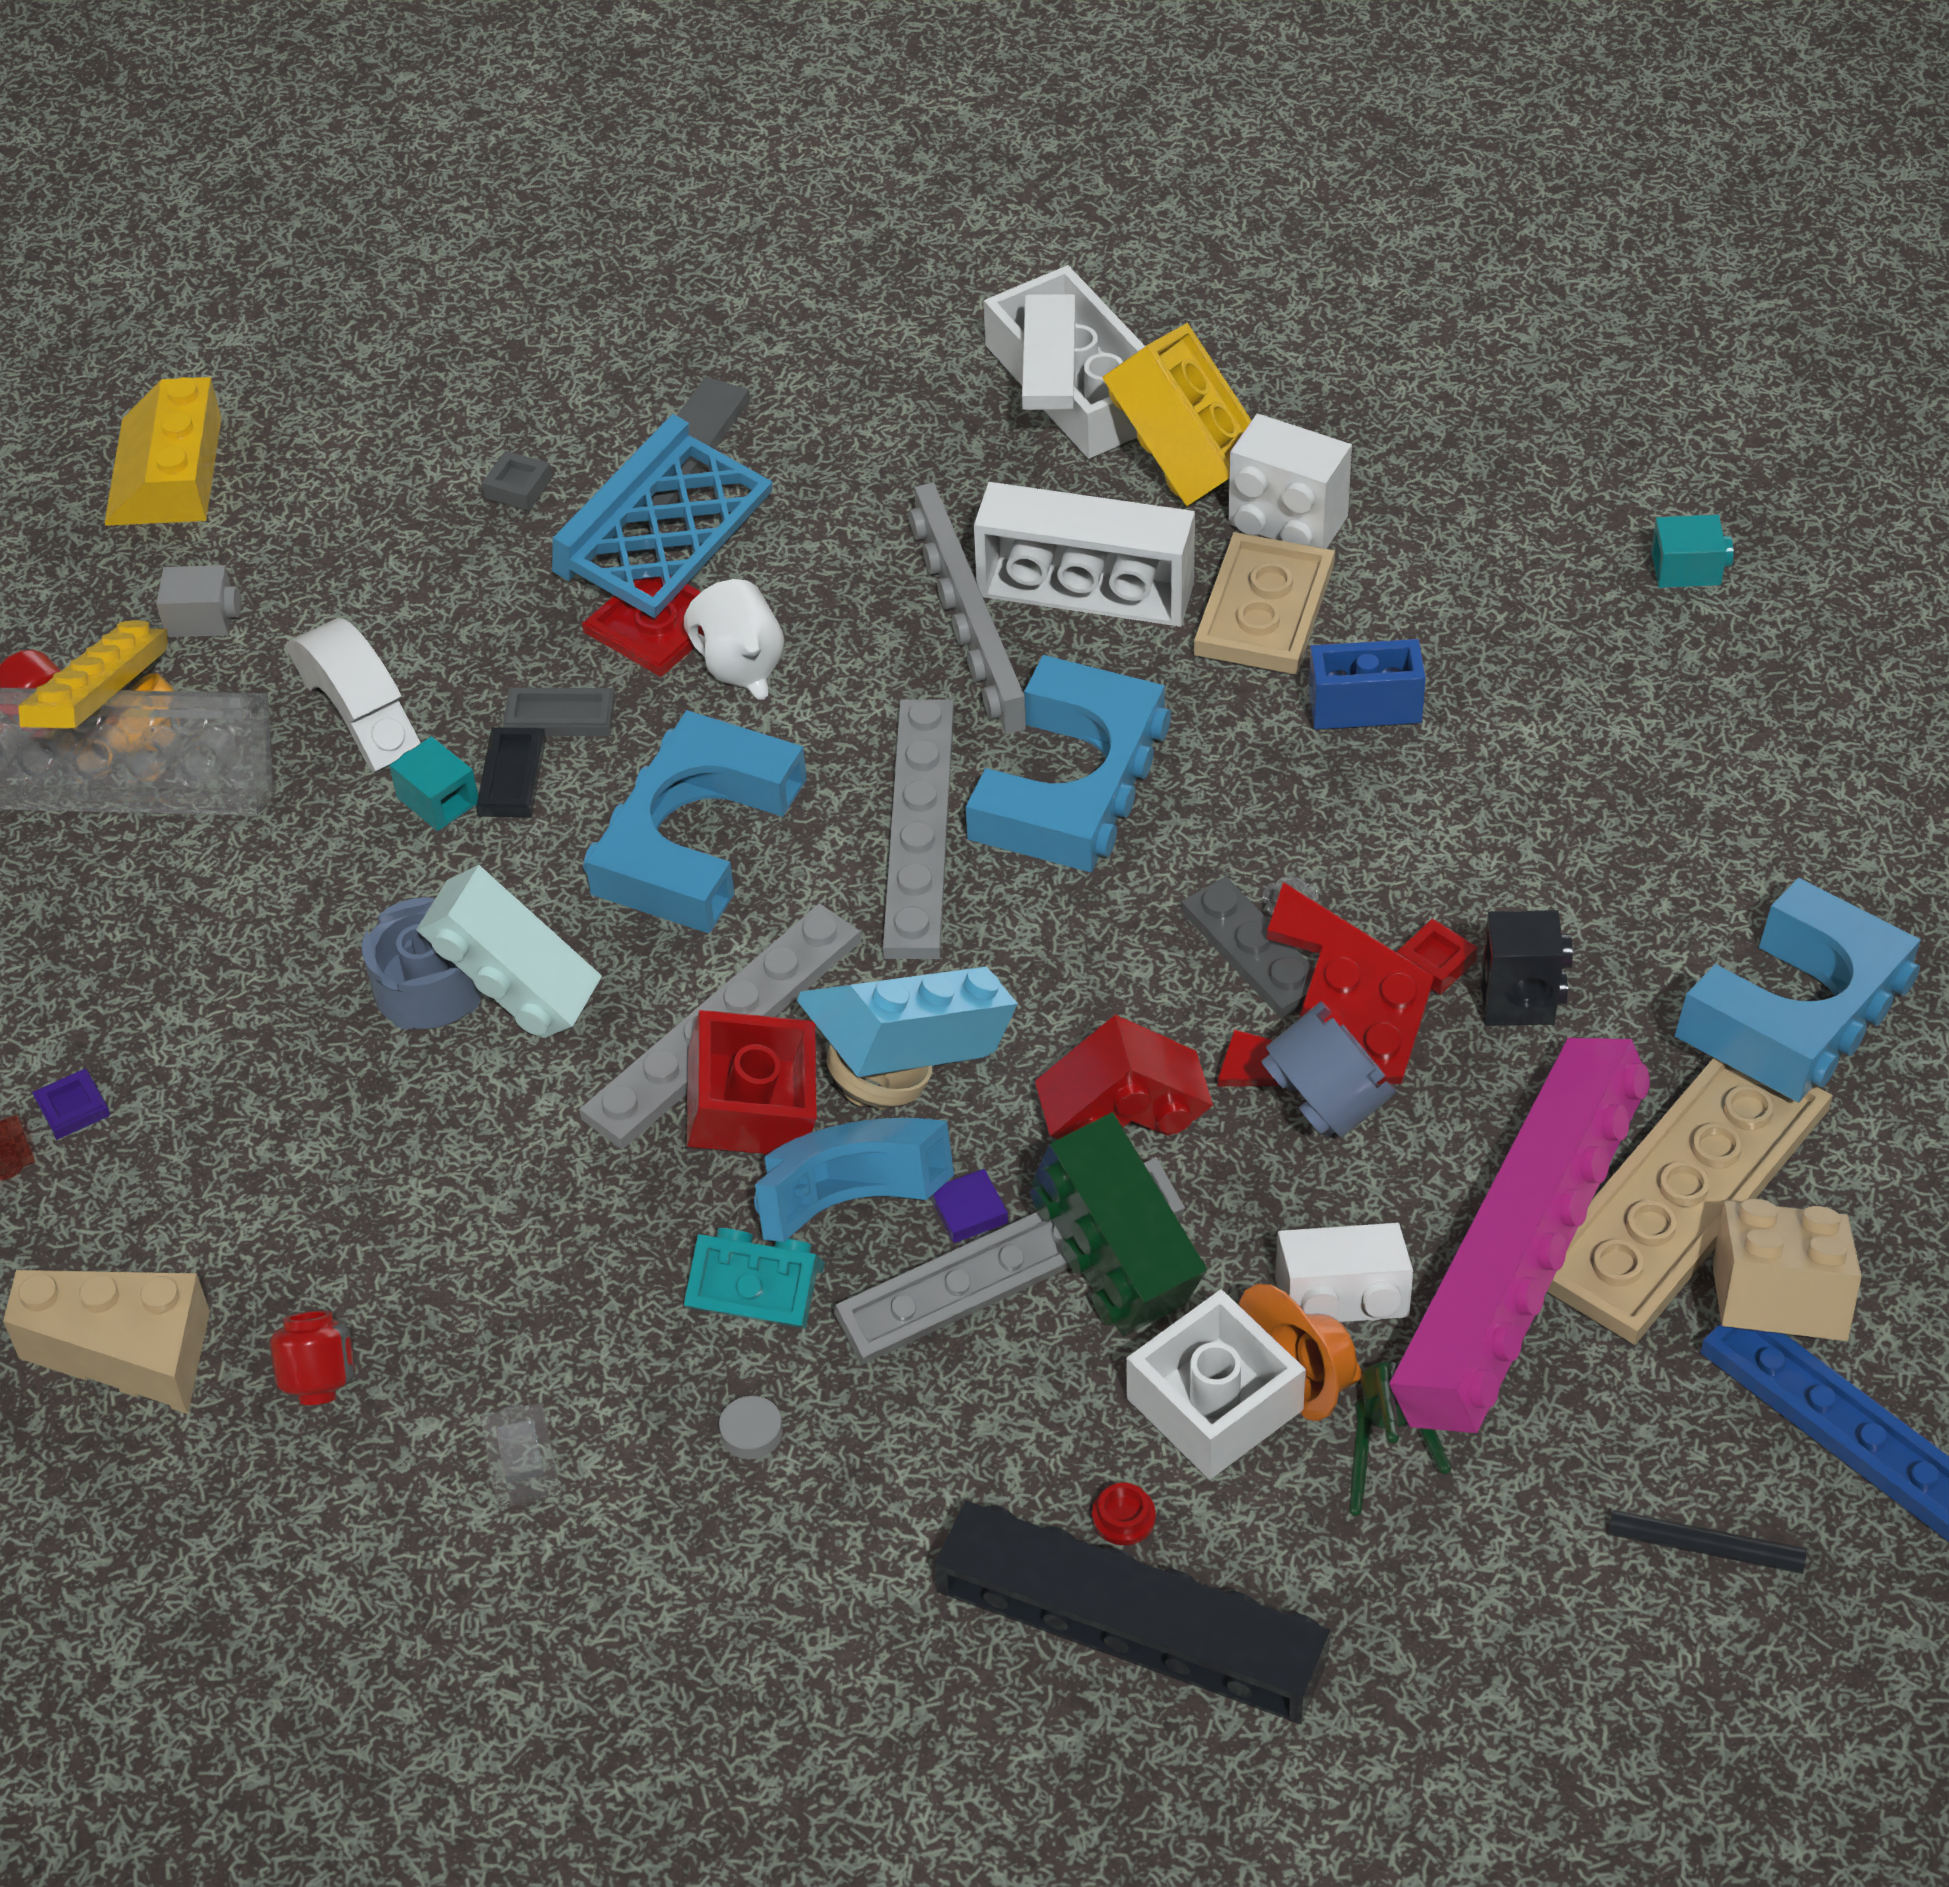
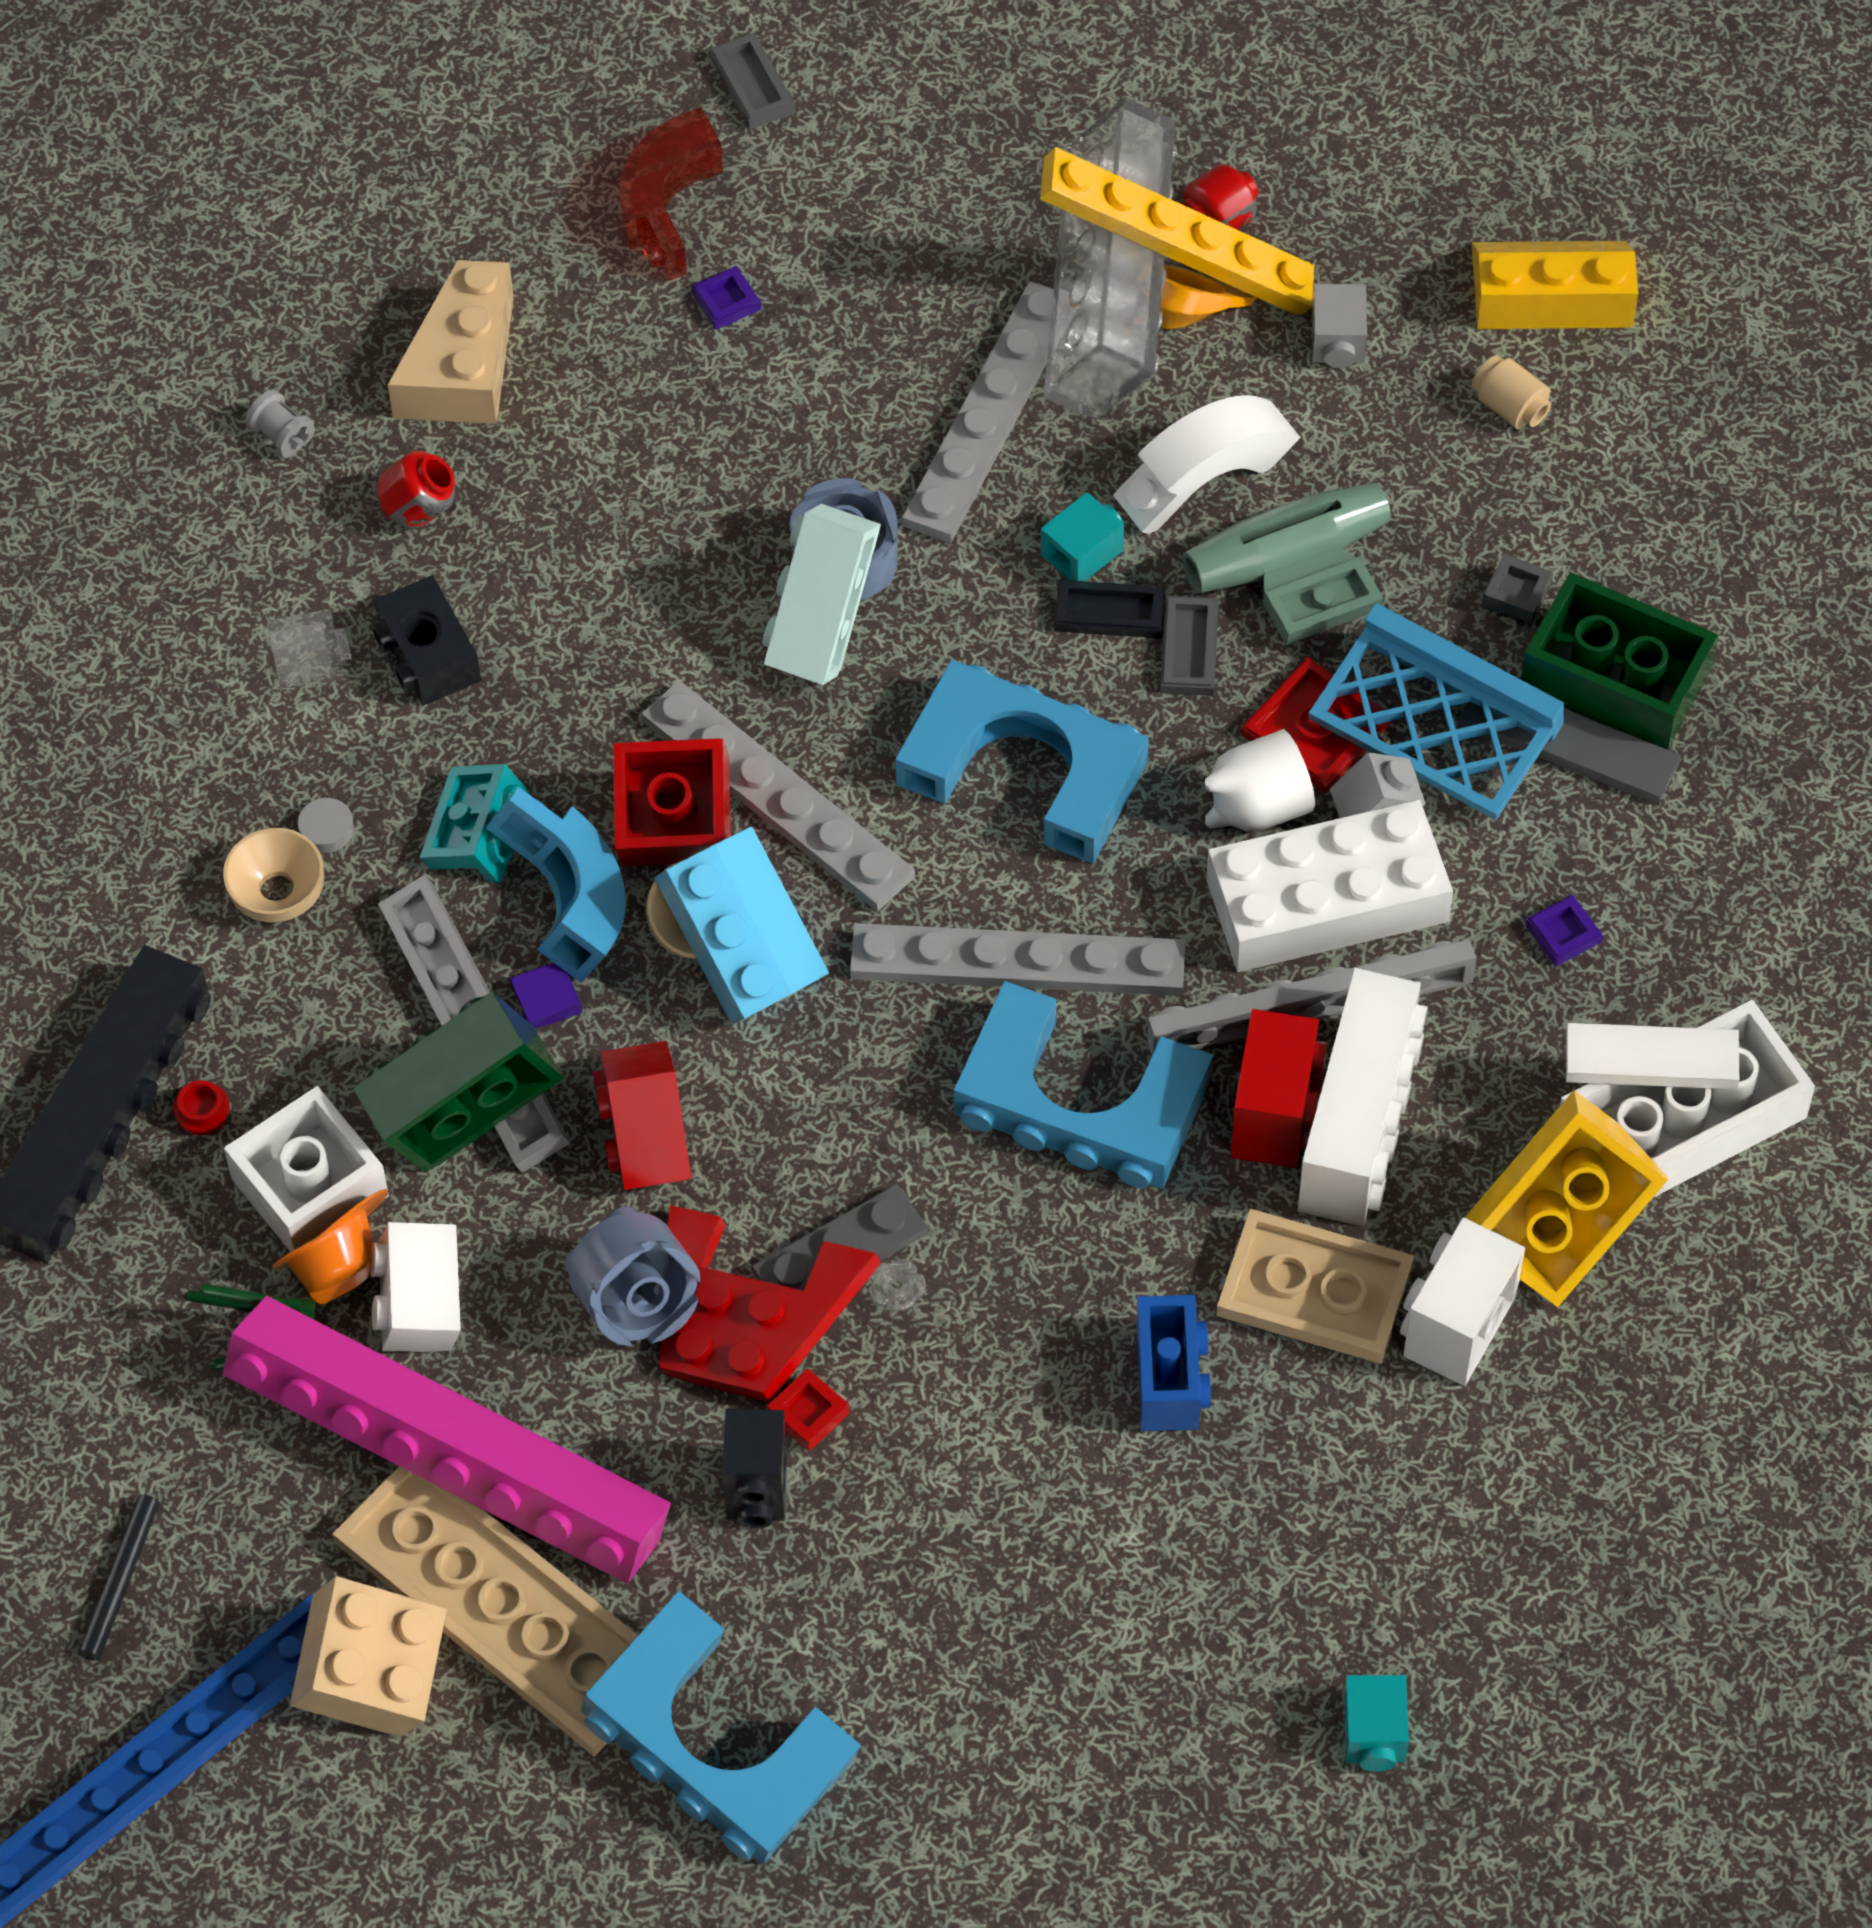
camera: 90 degrees right, 10 degrees up
(191, 1515) = (279, 423): none -> light grey bush
(251, 870) = (984, 419): none -> light grey plate
(294, 482) = (1512, 392): none -> tan brick
(464, 631) = (1299, 558): none -> sand green plate
(529, 1312) = (424, 615): none -> black brick
(610, 399) = (1619, 660): none -> dark green brick
(753, 551) = (1375, 784): none -> light grey brick
(826, 1432) = (268, 855): none -> tan piece
(848, 594) = (1329, 885): none -> white brick
(884, 454) = (1564, 930): none -> dark purple tile
(1079, 608) = (1278, 1088): none -> red brick

